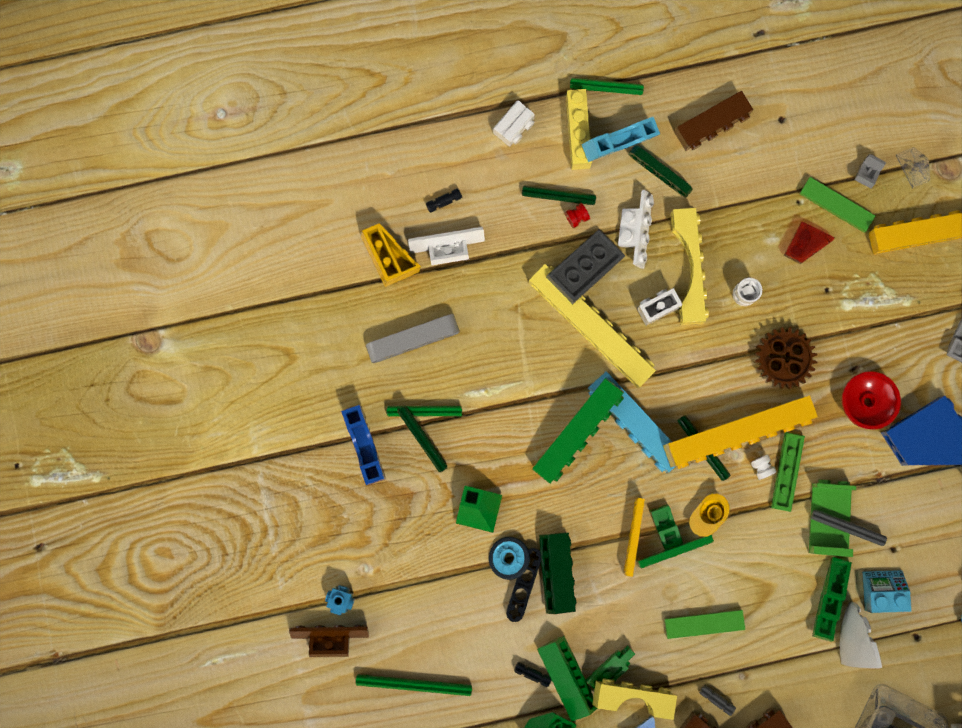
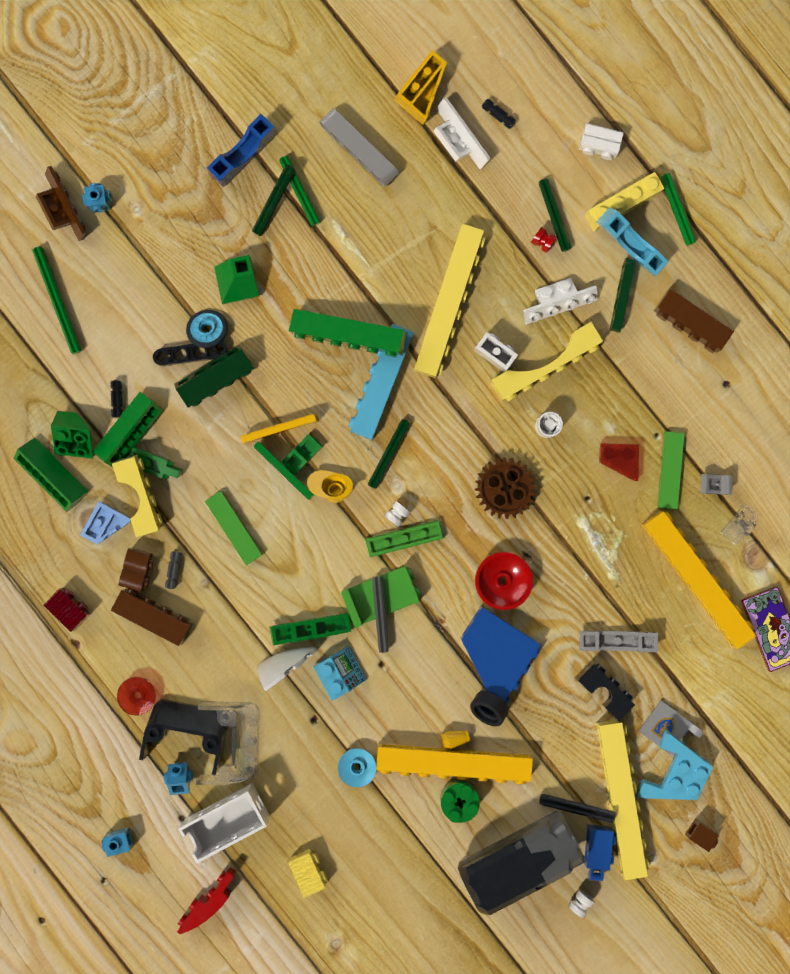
camera: 60 degrees right, 5 degrees up
(585, 266) = (500, 269): dark grey tile -> none
(740, 431) = (417, 476): yellow brick -> none

